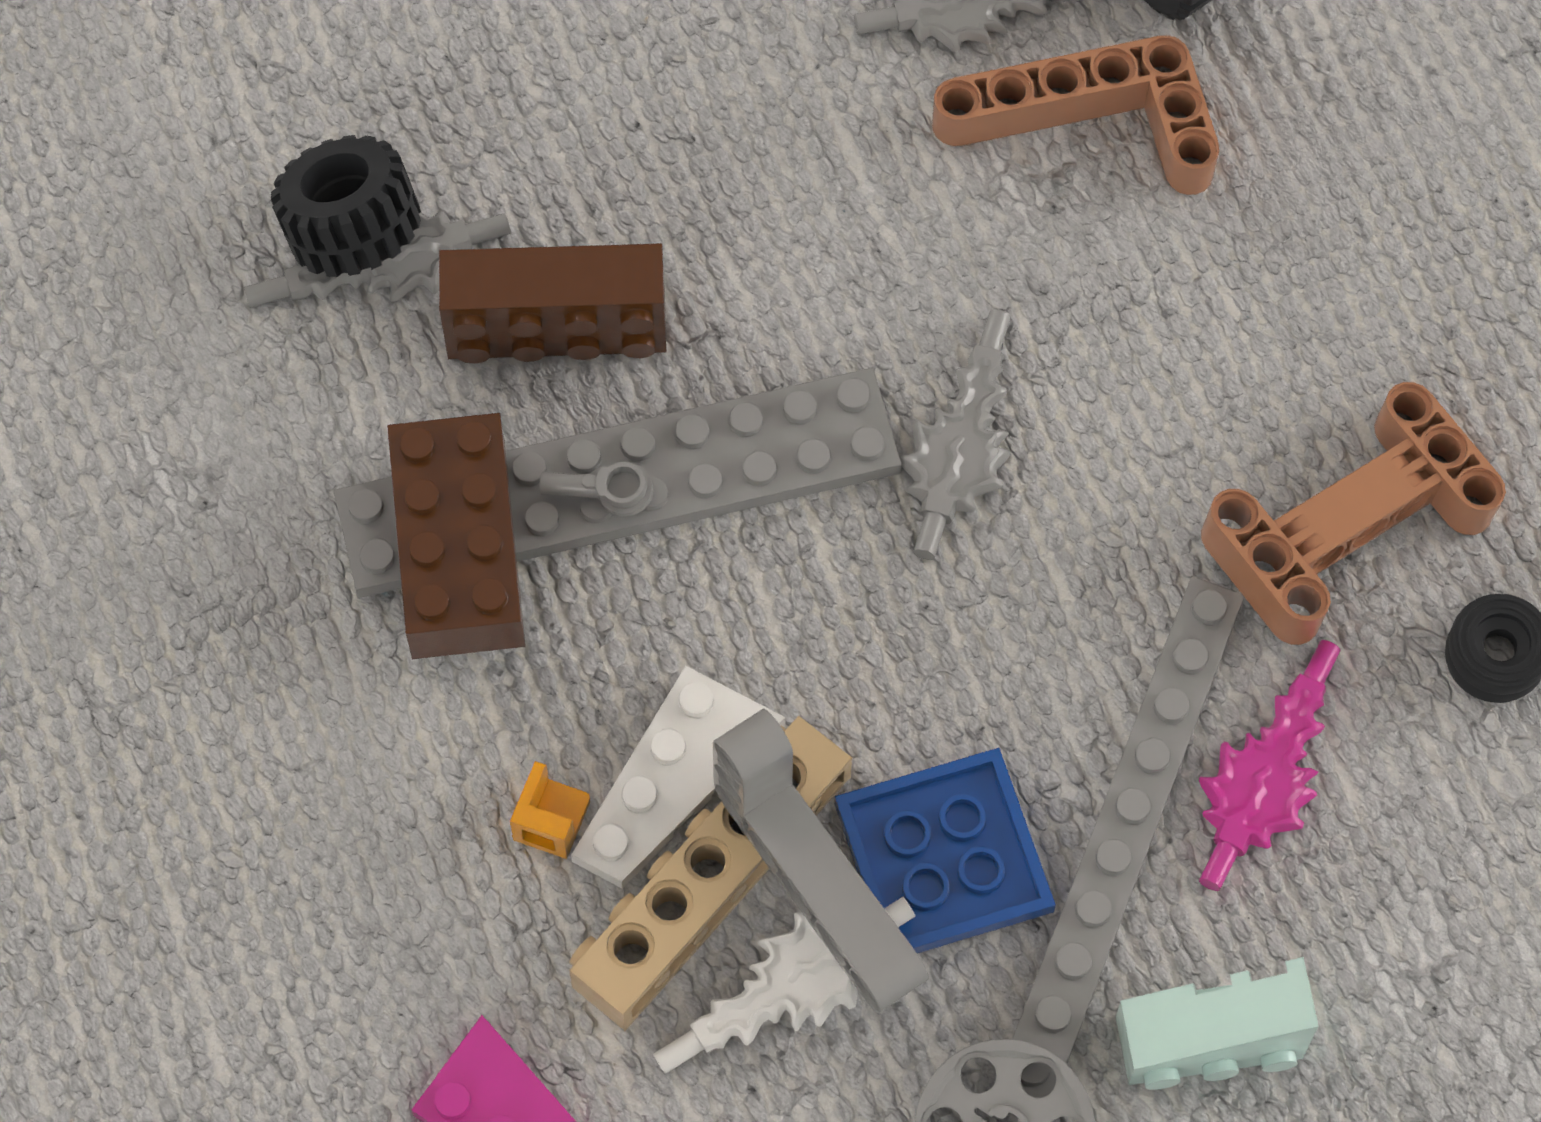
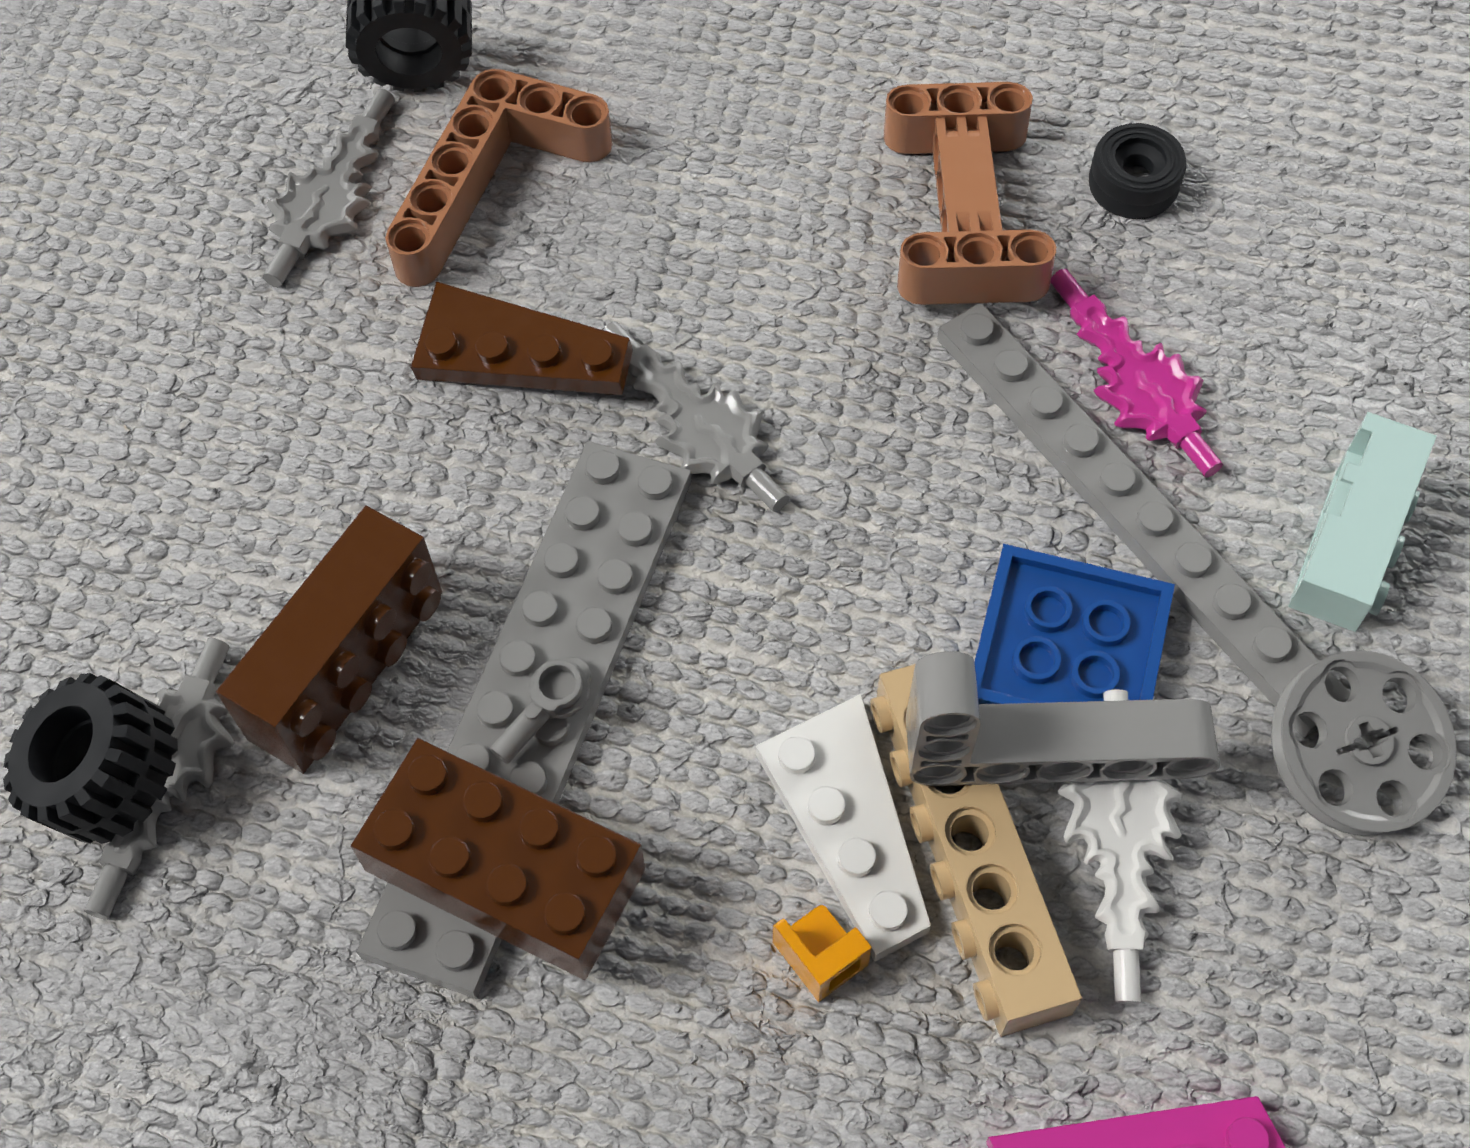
camera: 55 degrees left, 5 degrees down
(922, 247) = (510, 345): none -> reddish brown wing

